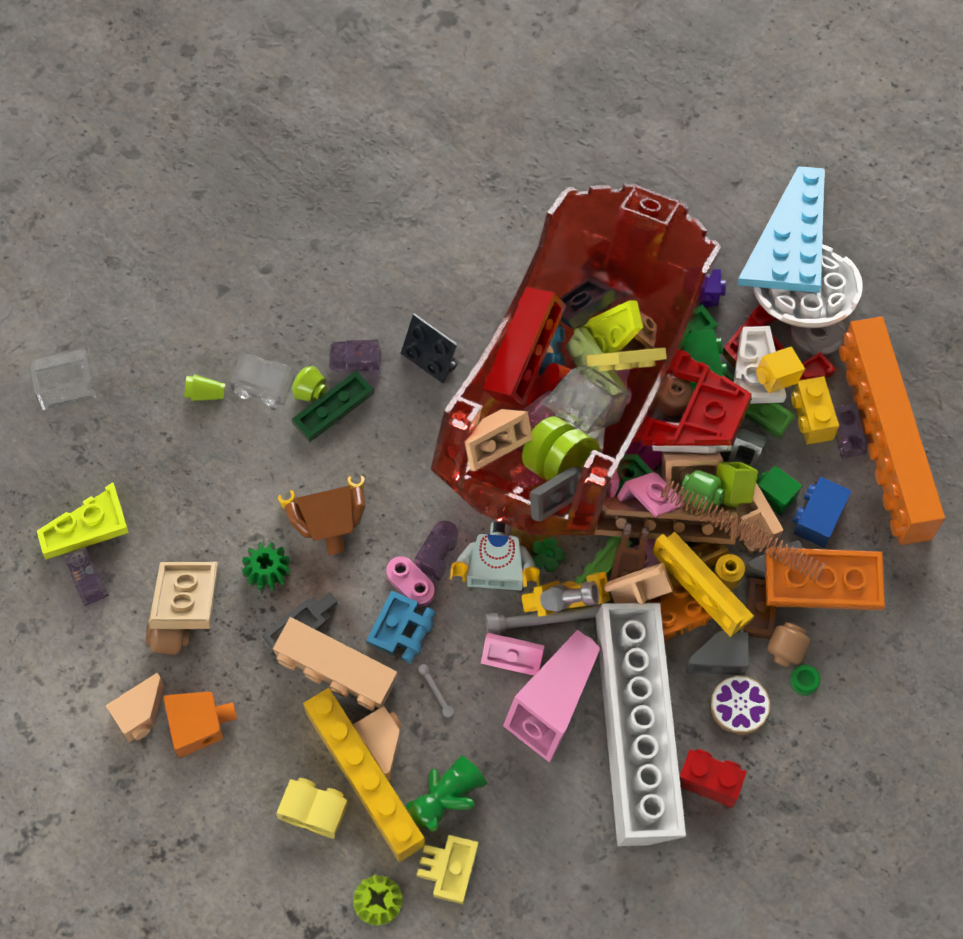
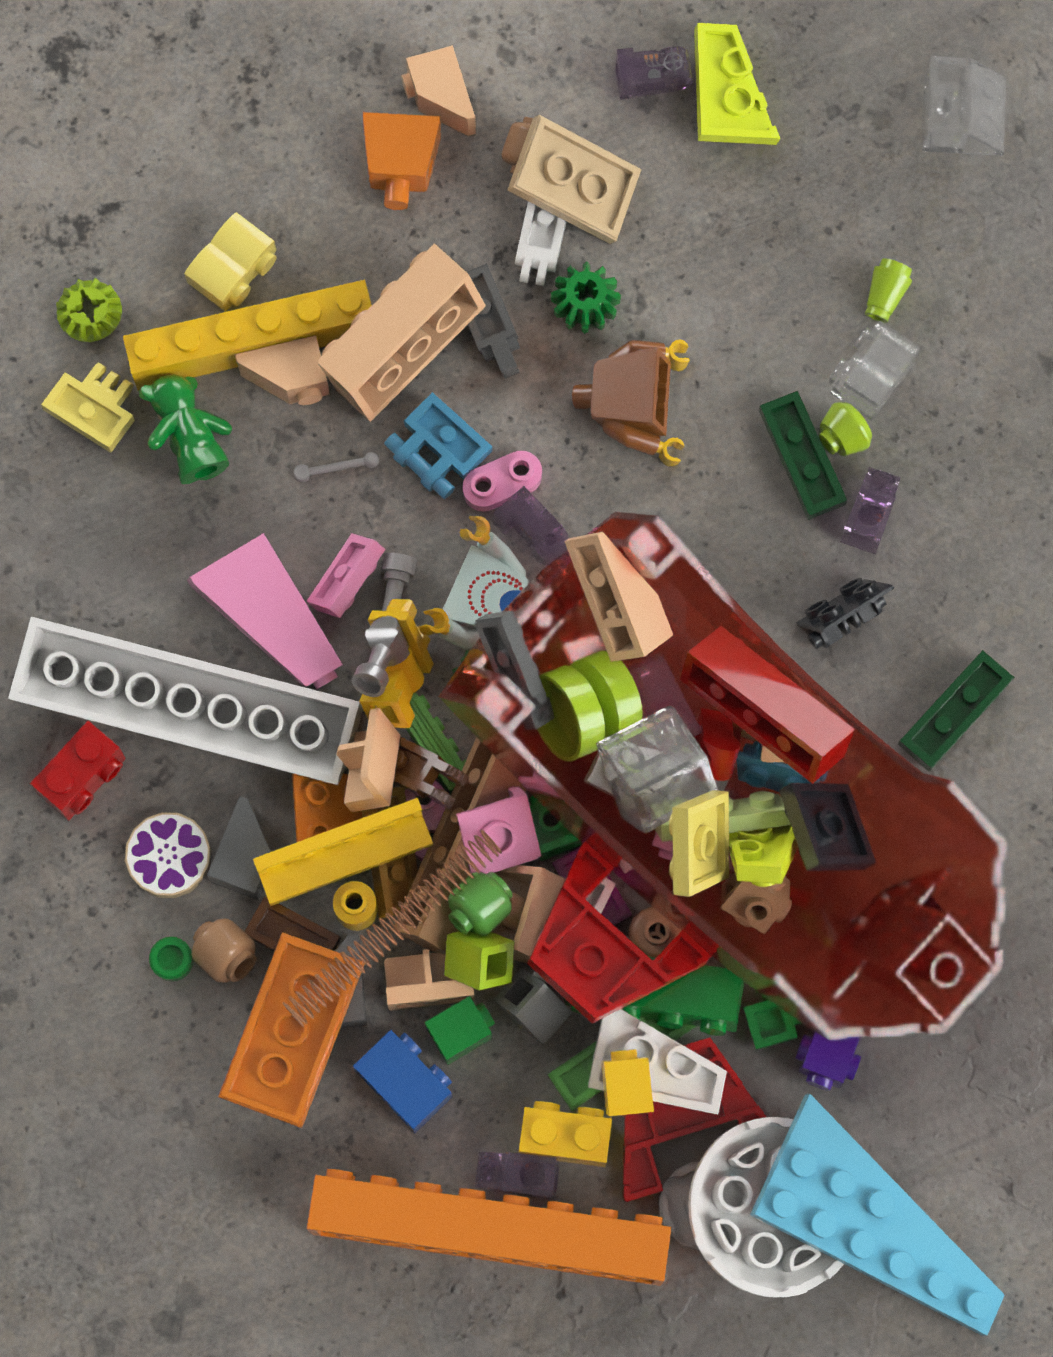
camera: 110 degrees right, 10 degrees up
(236, 608) = (539, 243): none -> white hinge
(469, 277) = (956, 710): none -> dark green plate

